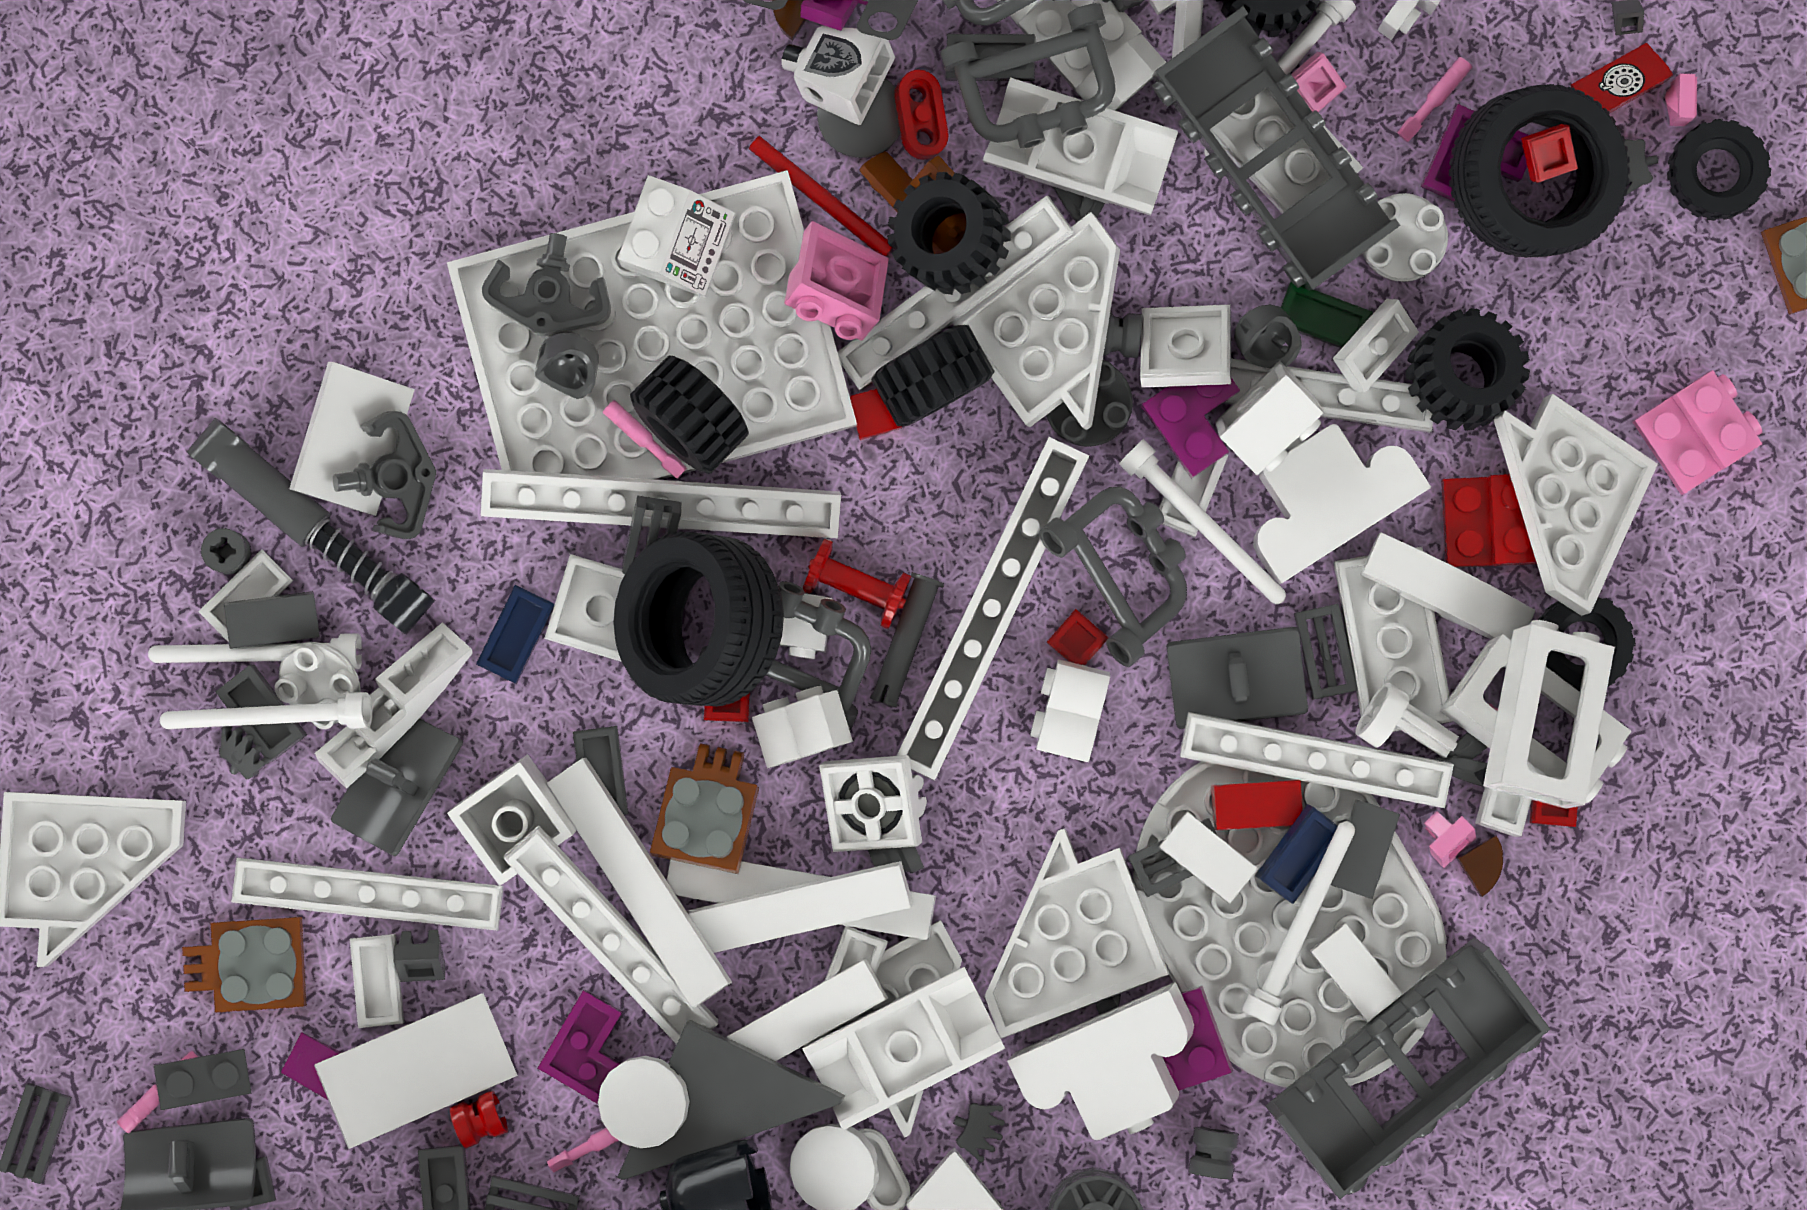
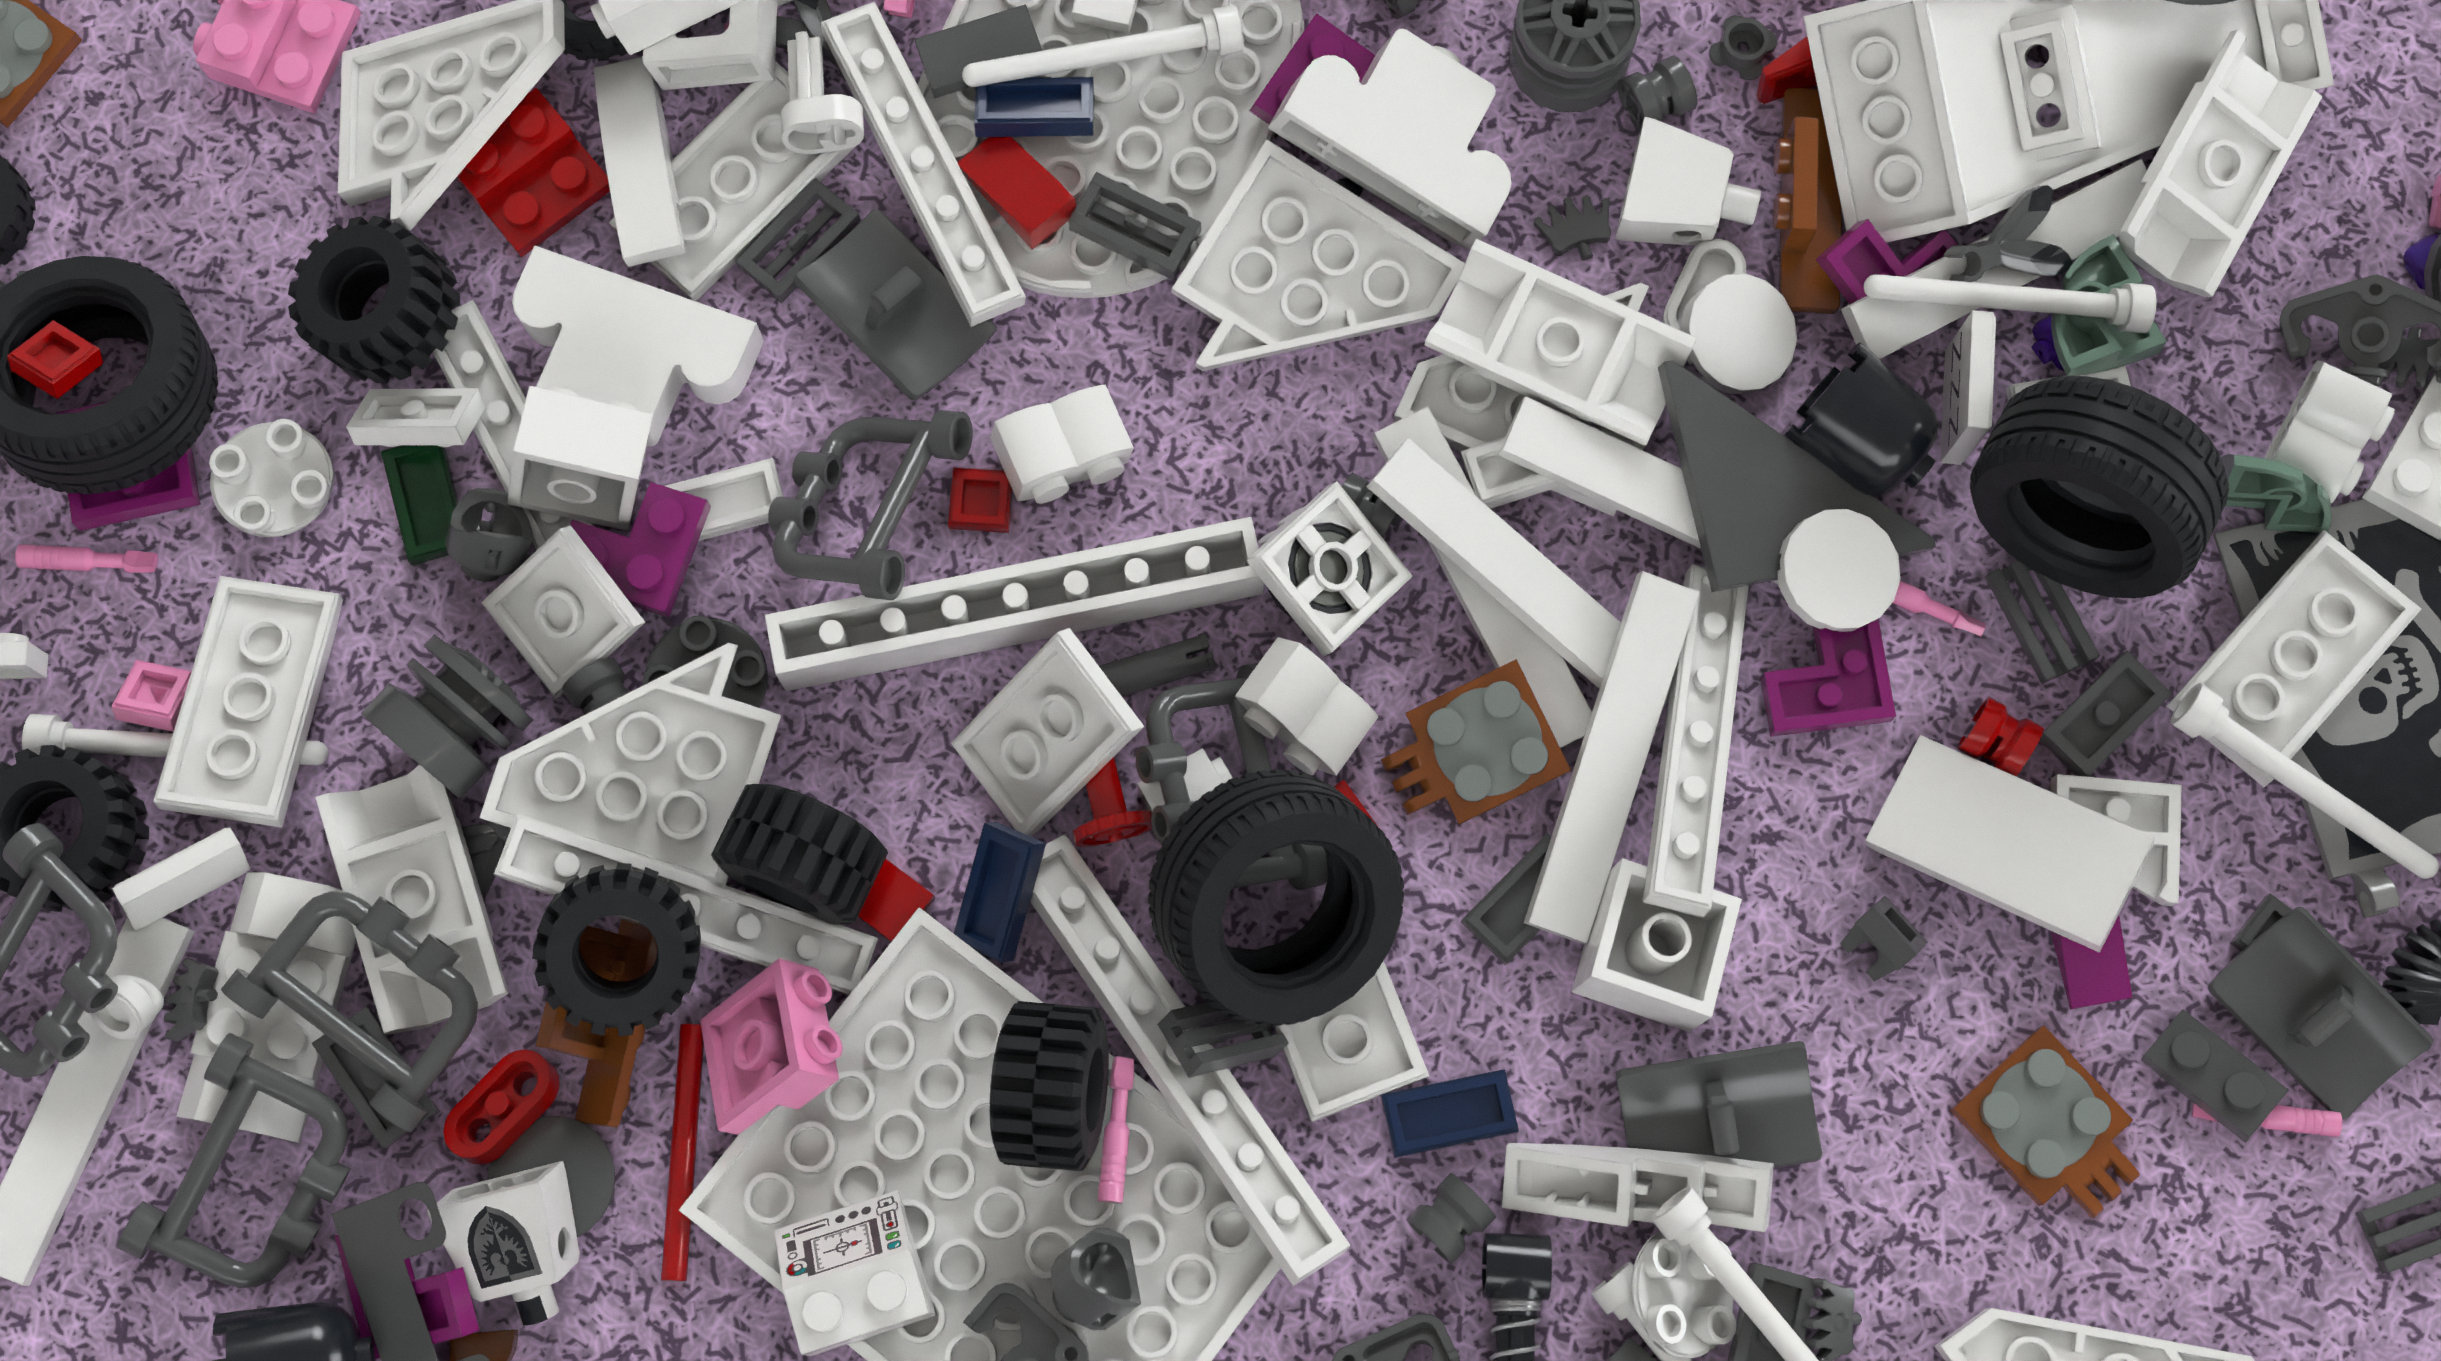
camera: 130 degrees left, 10 degrees down
(367, 894) = (1867, 1056): white tile -> none
(376, 981) = (1948, 968): white tile -> none
(377, 1160) = (2146, 807): none -> white wing
(457, 588) = (1453, 1215): none -> dark grey wheel
(830, 474) = (999, 891): none -> dark blue tile
(897, 566) = (1047, 733): none -> white tile
(1144, 464) = (731, 567): white piece -> none
(1167, 229) = (448, 715): none -> dark grey wheel
(1208, 857) = (1111, 187): white tile -> none
(1218, 78) = (304, 552): dark grey window -> none

